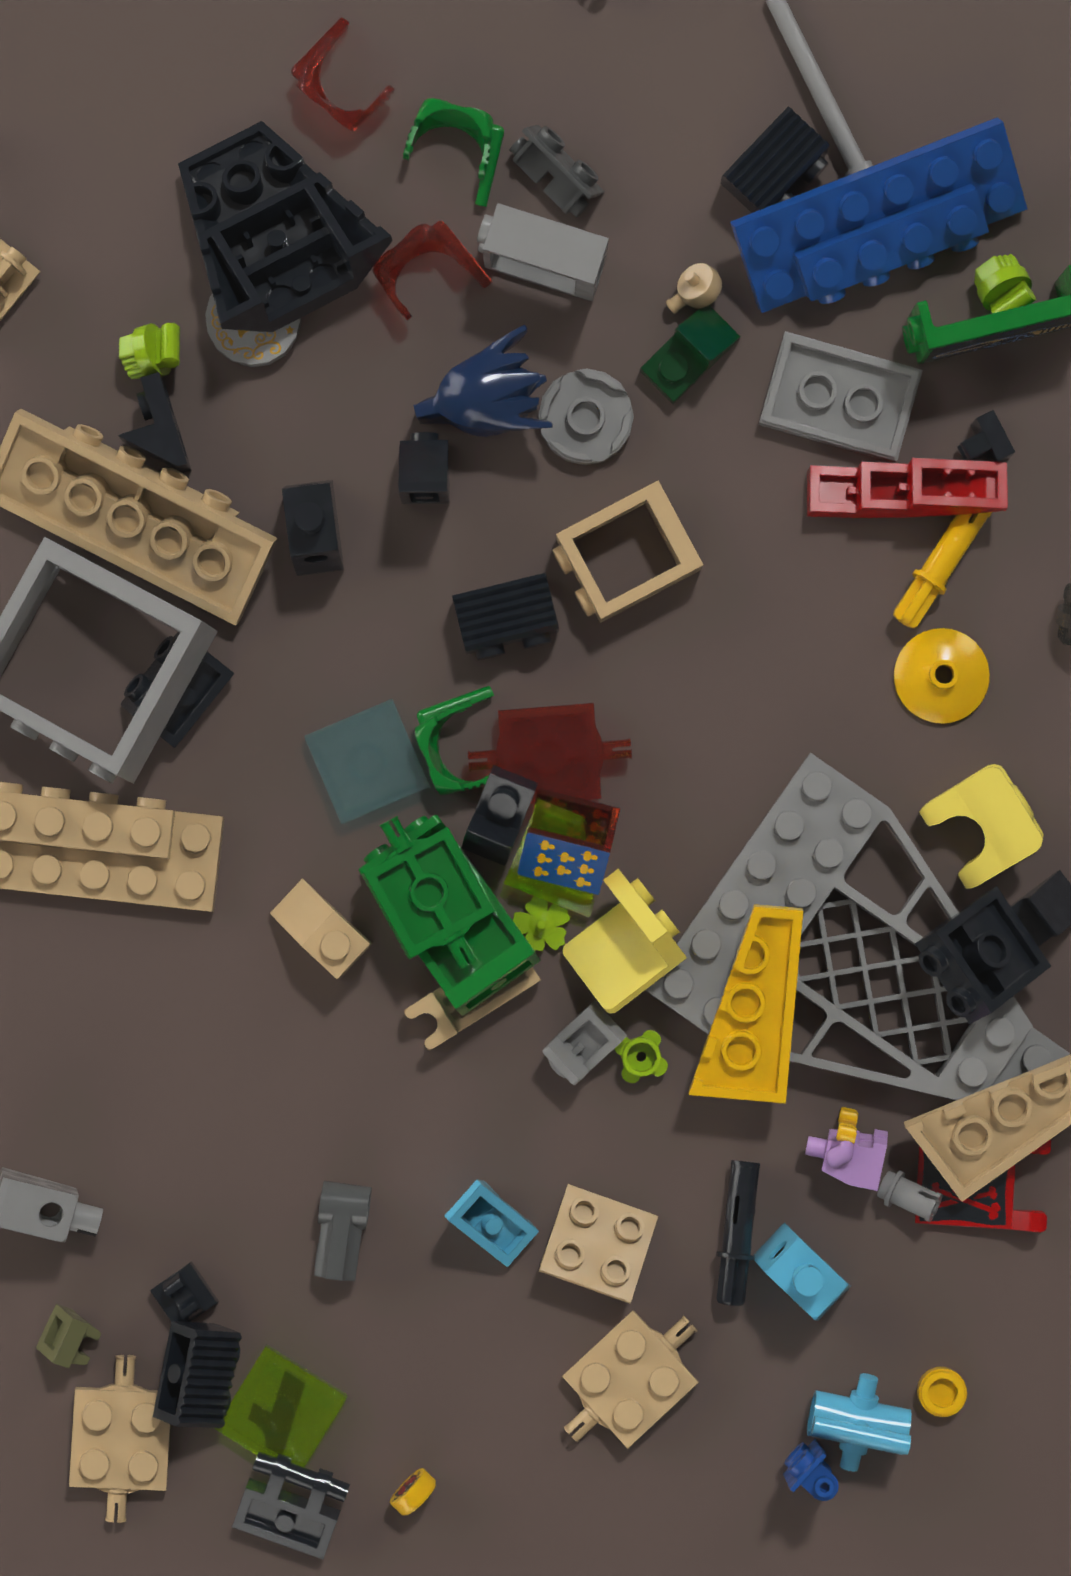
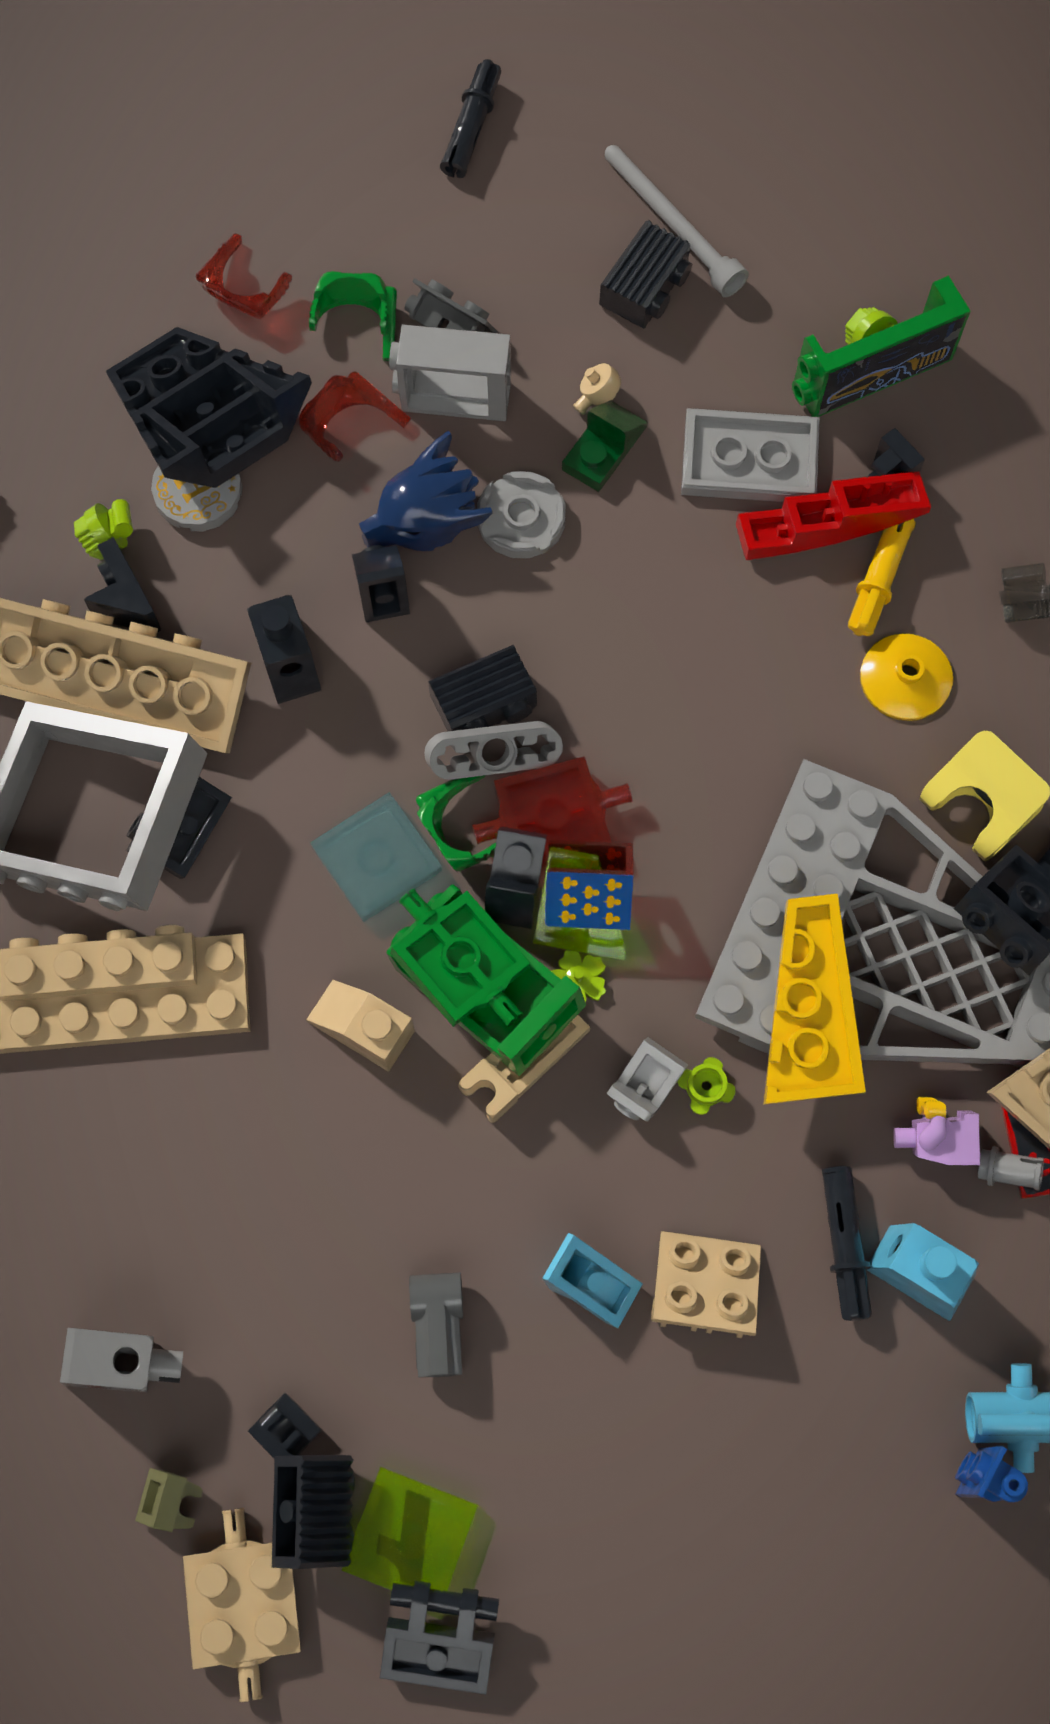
camera: 10 degrees left, 15 degrees down
(413, 1492) = (569, 1596): yellow tile -> none
(490, 665) = (461, 766): none -> light grey beam
(625, 946) = (670, 974): light yellow bracket -> none
(630, 1379) = (772, 1422): tan plate -> none
(671, 530) = (619, 587): tan window -> none
(881, 218) = (748, 297): blue plate -> none

